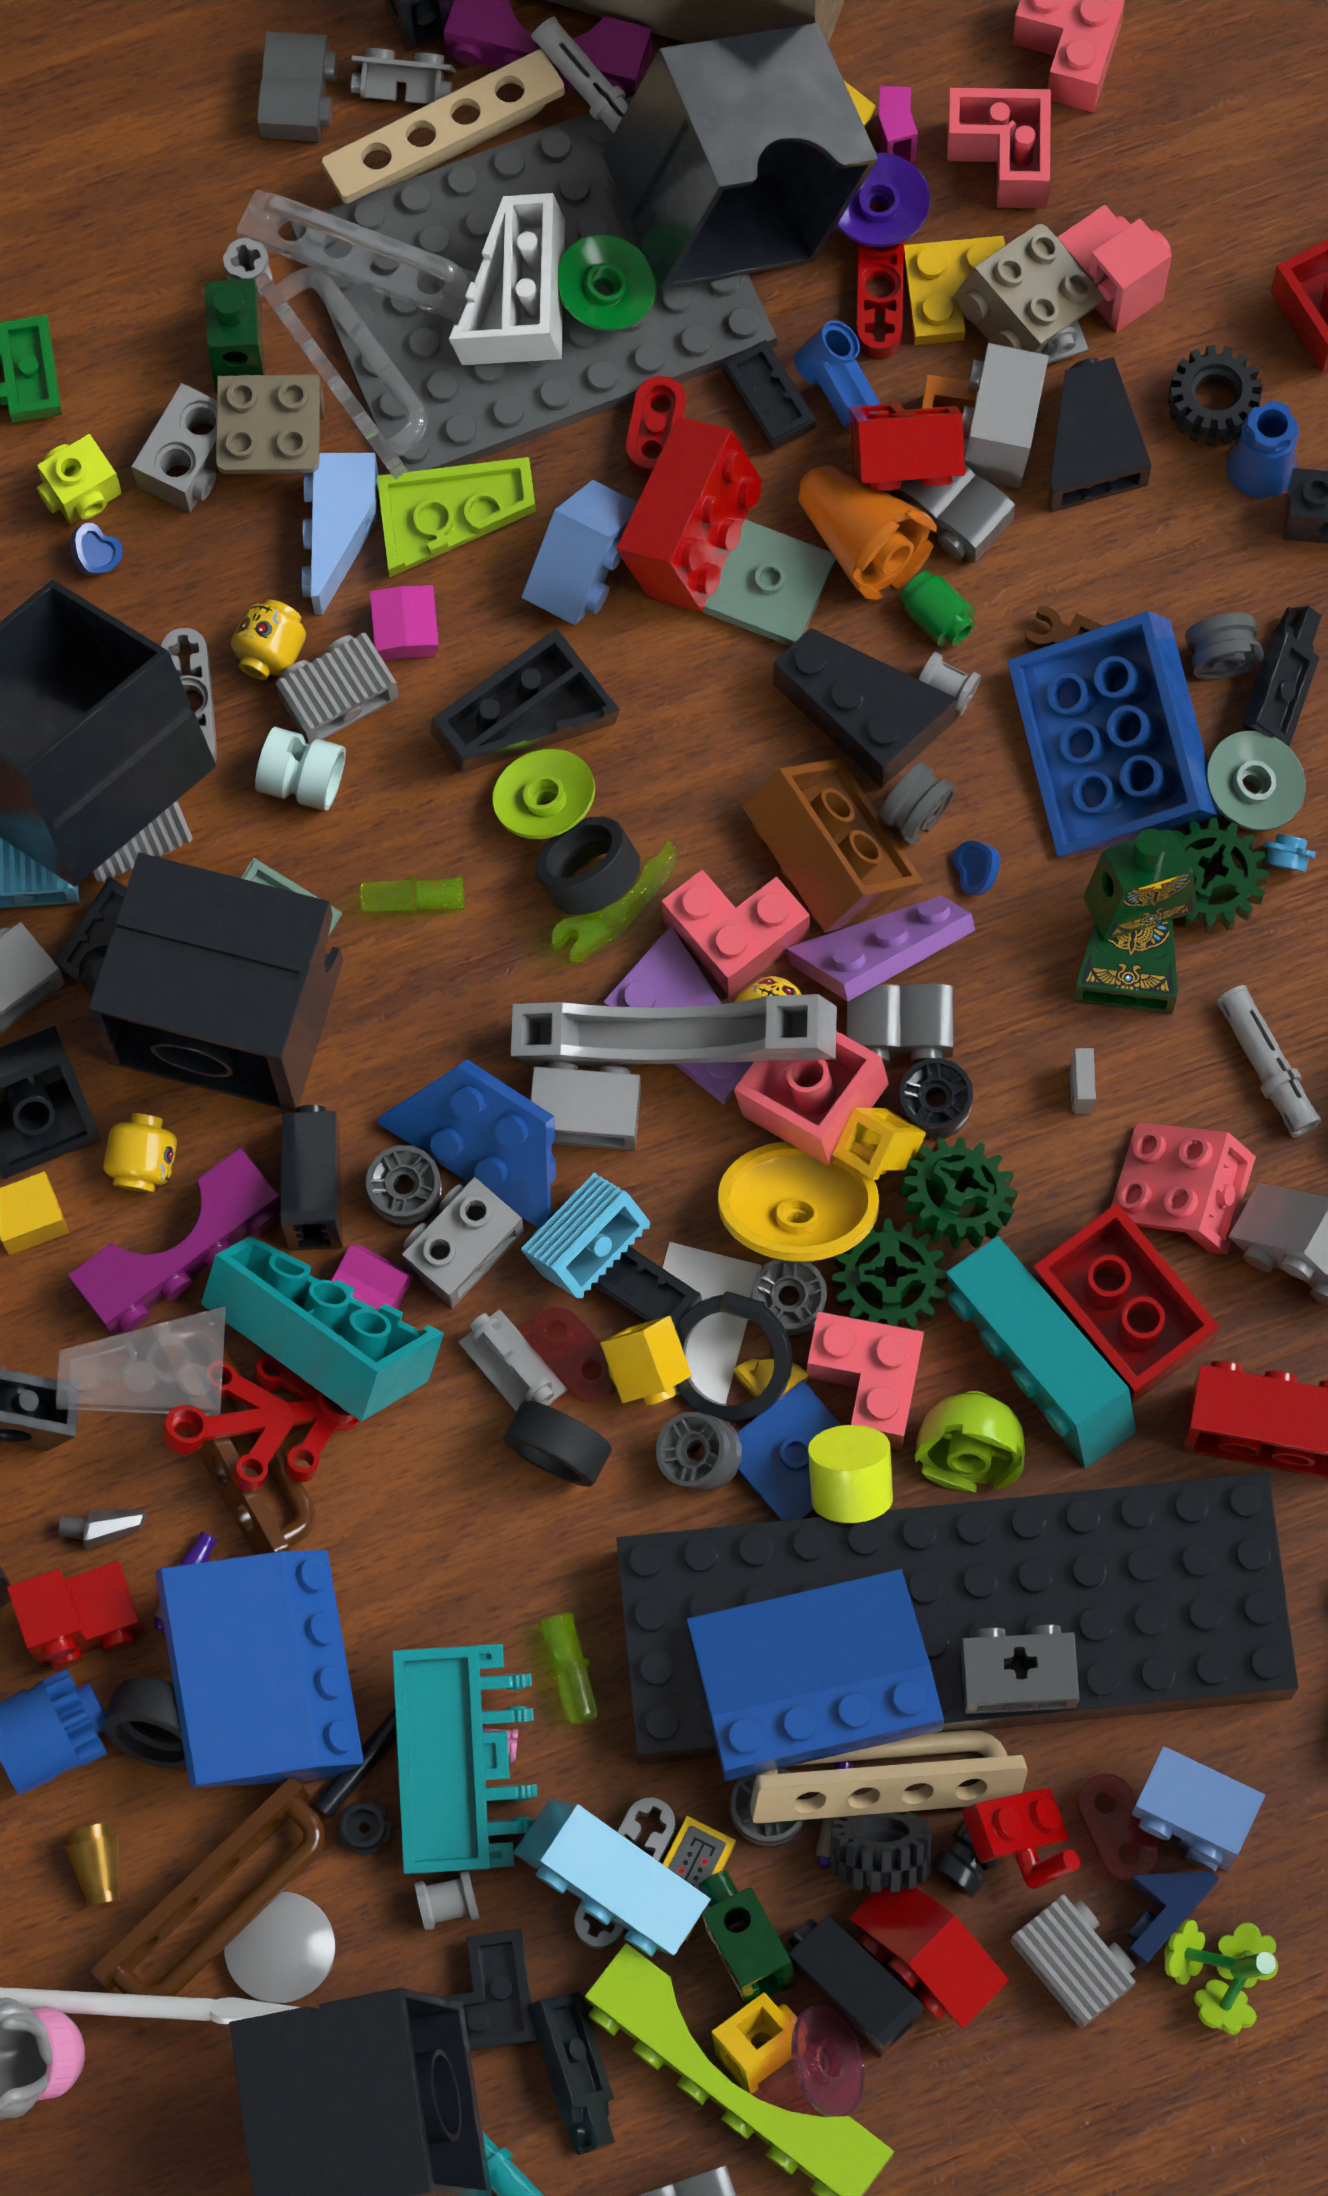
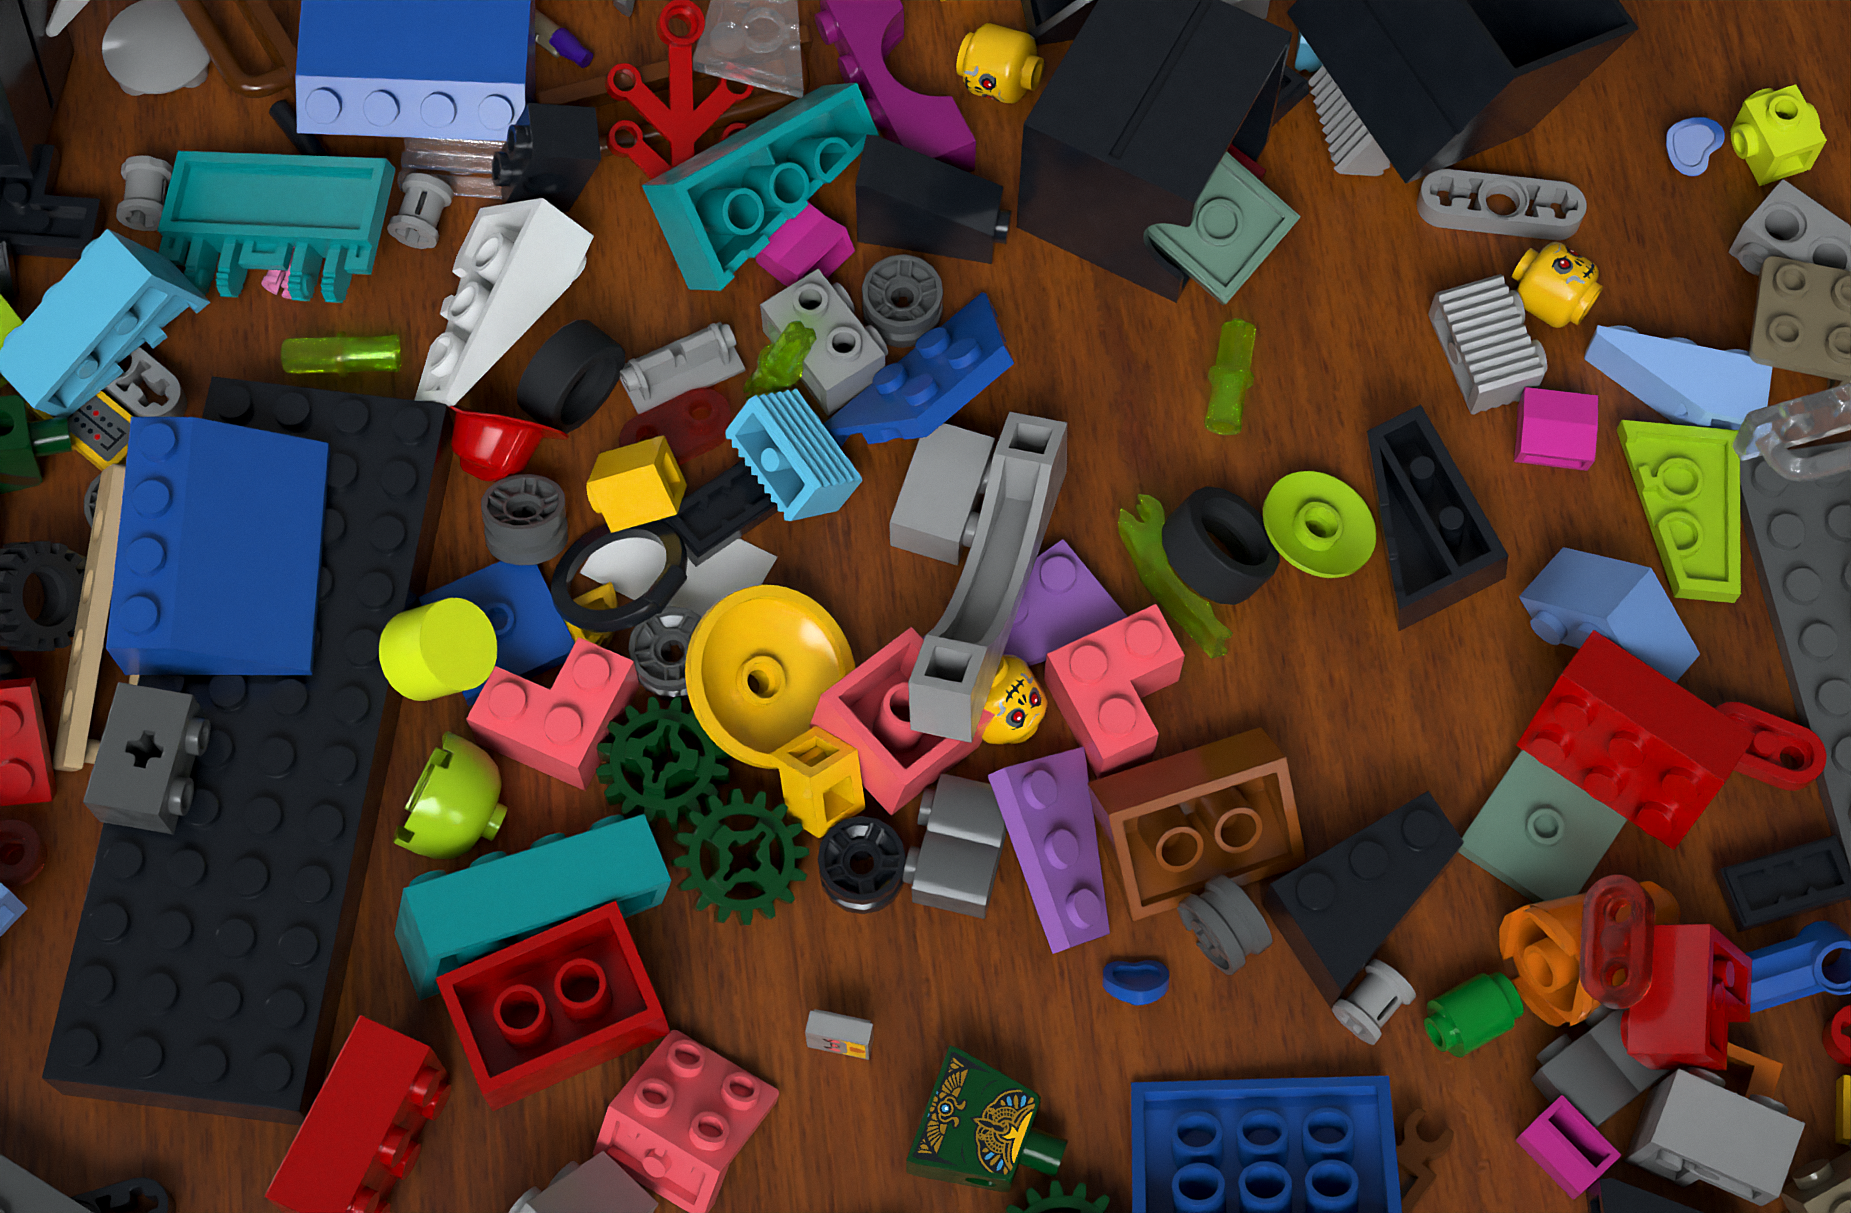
camera: 100 degrees right, 5 degrees down
(300, 769) = (1397, 285): light aqua wheel -> none
(342, 1577) = (456, 156): none -> clear tile
(346, 1517) = (548, 155): none -> black brick
(379, 1828) = (246, 125): black plate -> none
(406, 1634) = (437, 197): none -> light grey bush
(478, 1536) = (510, 274): none -> white wedge
(505, 1264) = (781, 361): none -> clear neon green axle
(631, 1493) = (496, 444): none -> red piece
(882, 490) = (1614, 945): none -> clear red plate
(1023, 545) = (1568, 1147): none -> dark pink piece
(1140, 884) = (1048, 1144): dark green torso -> none

